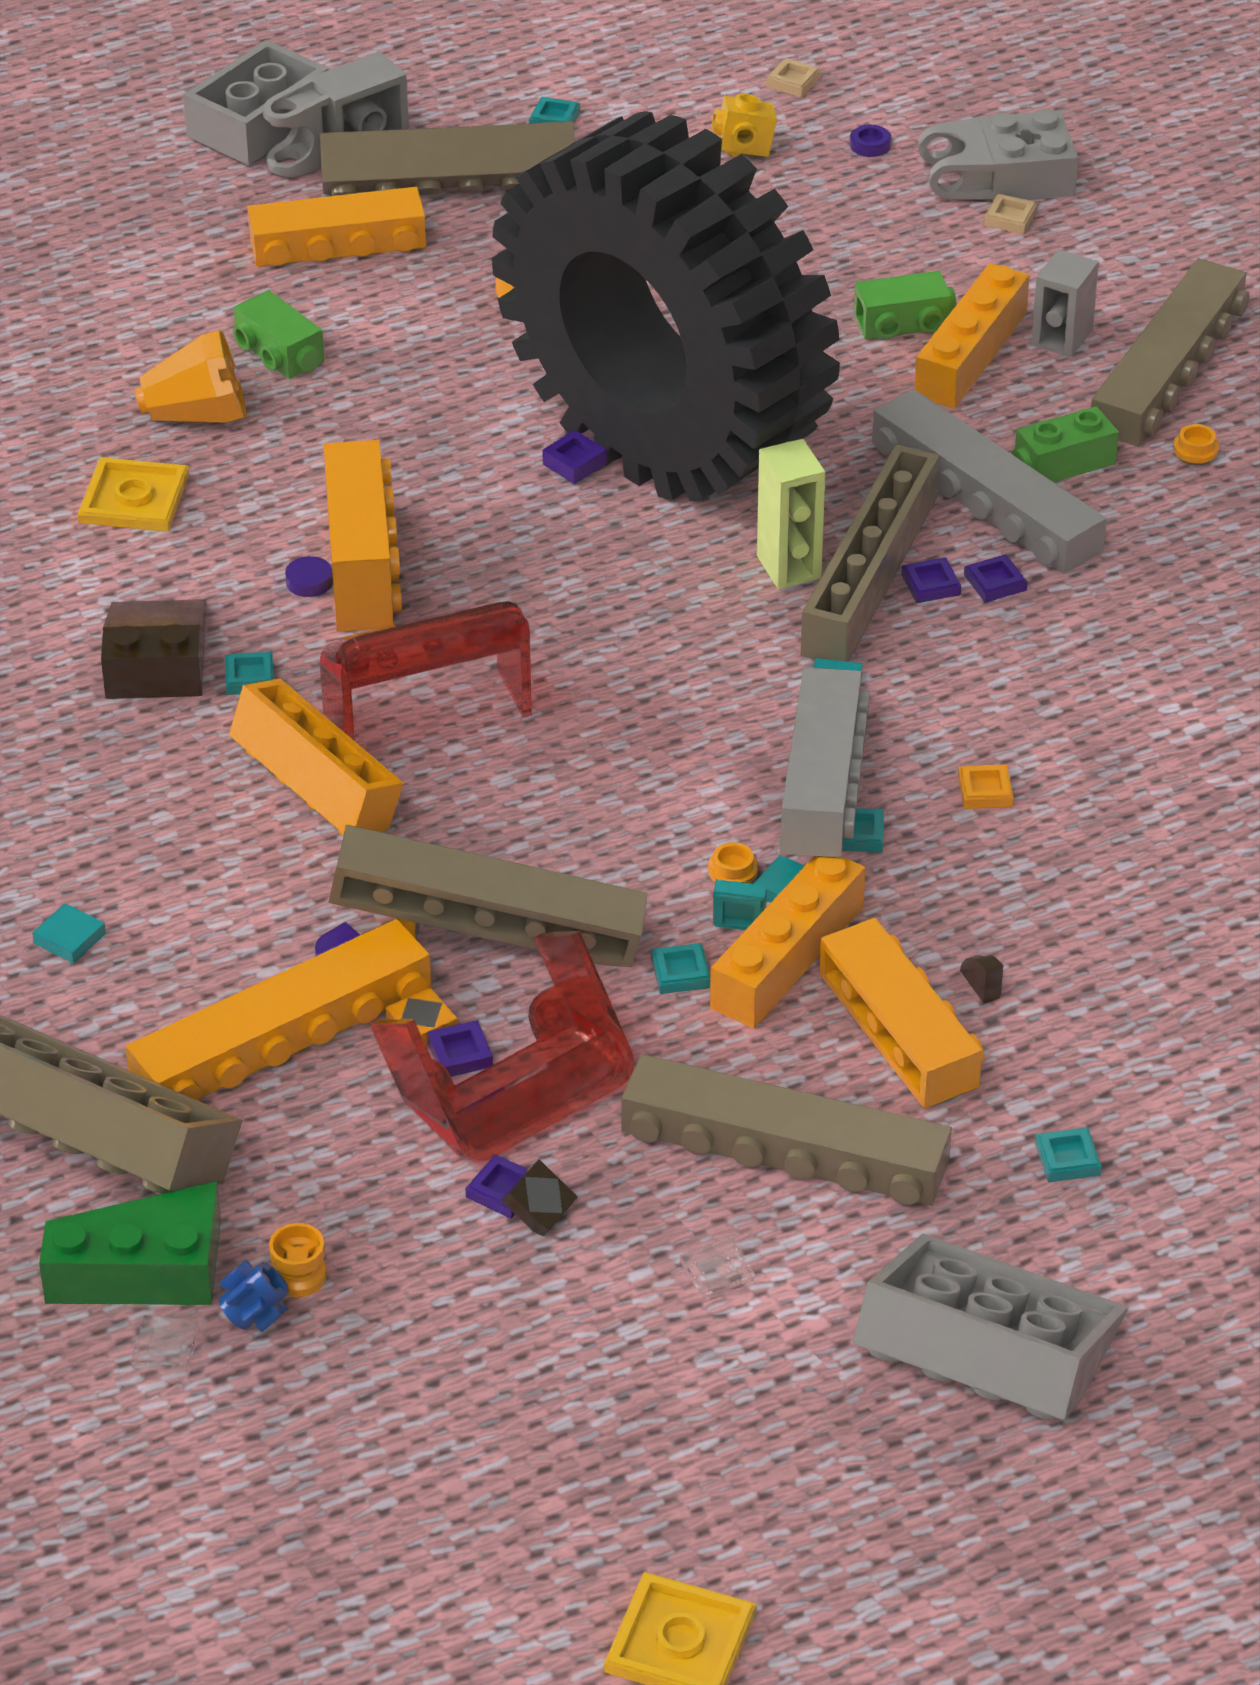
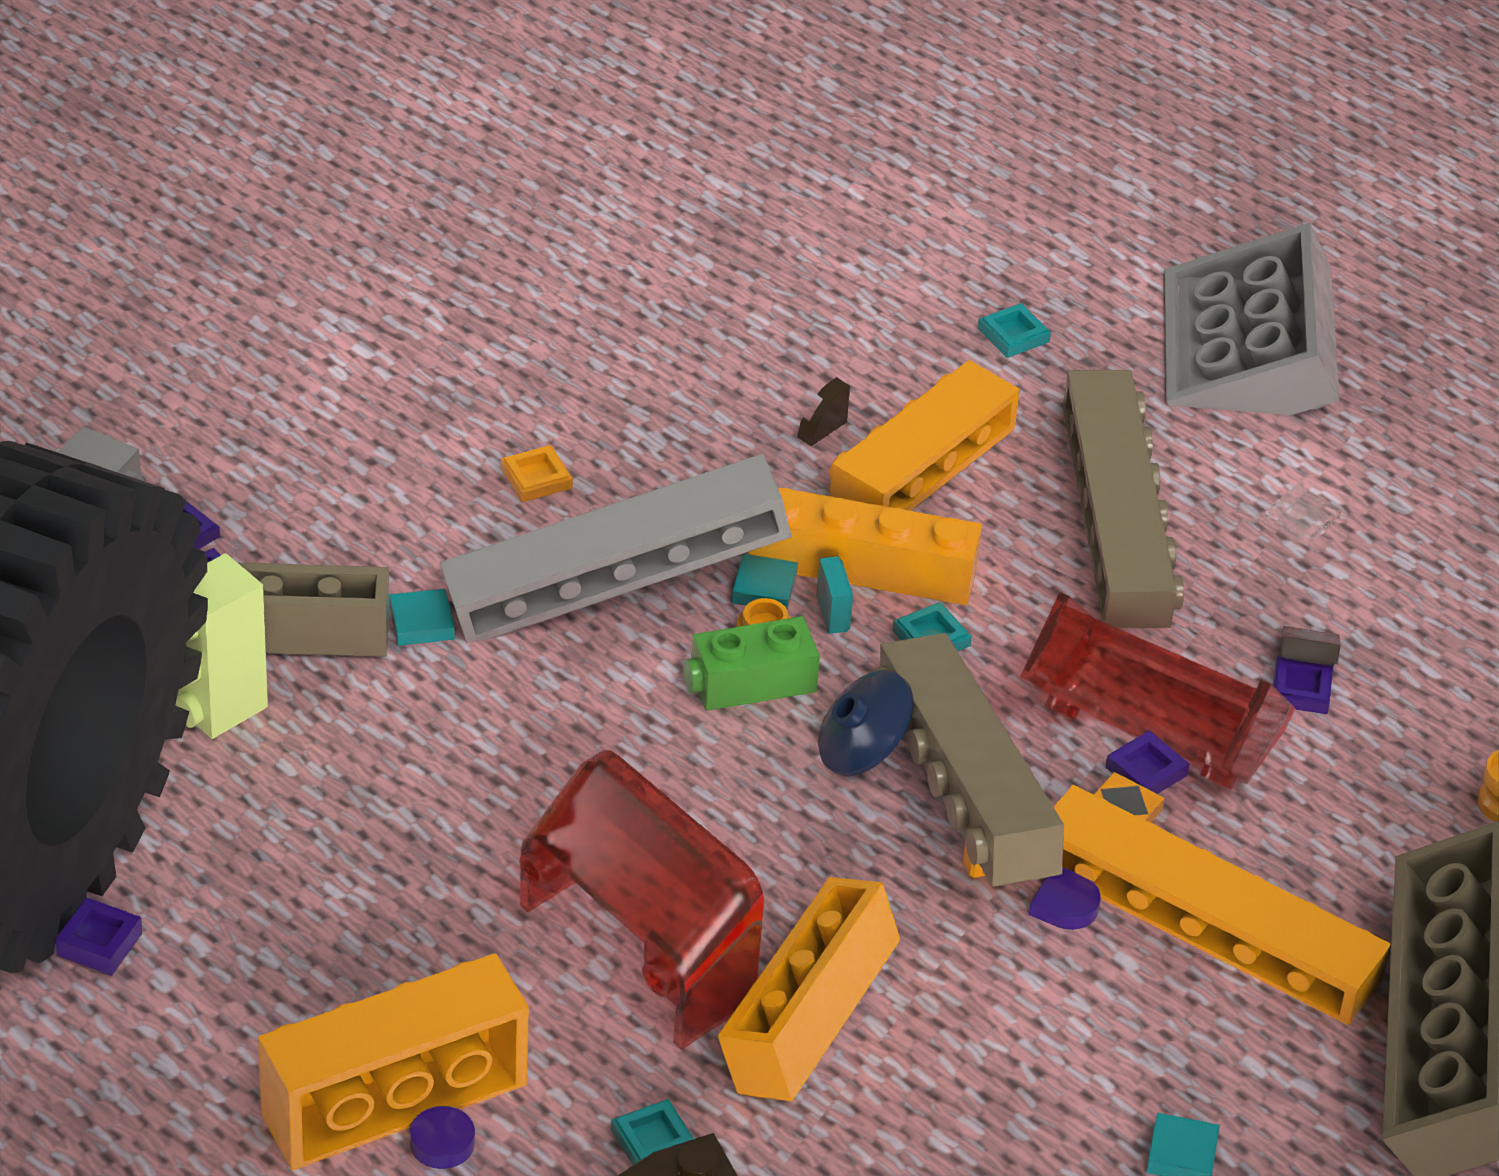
camera: 115 degrees left, 0 degrees up
(574, 860) = (865, 723): none -> dark blue dish
(680, 836) = (752, 663): none -> bright green brick

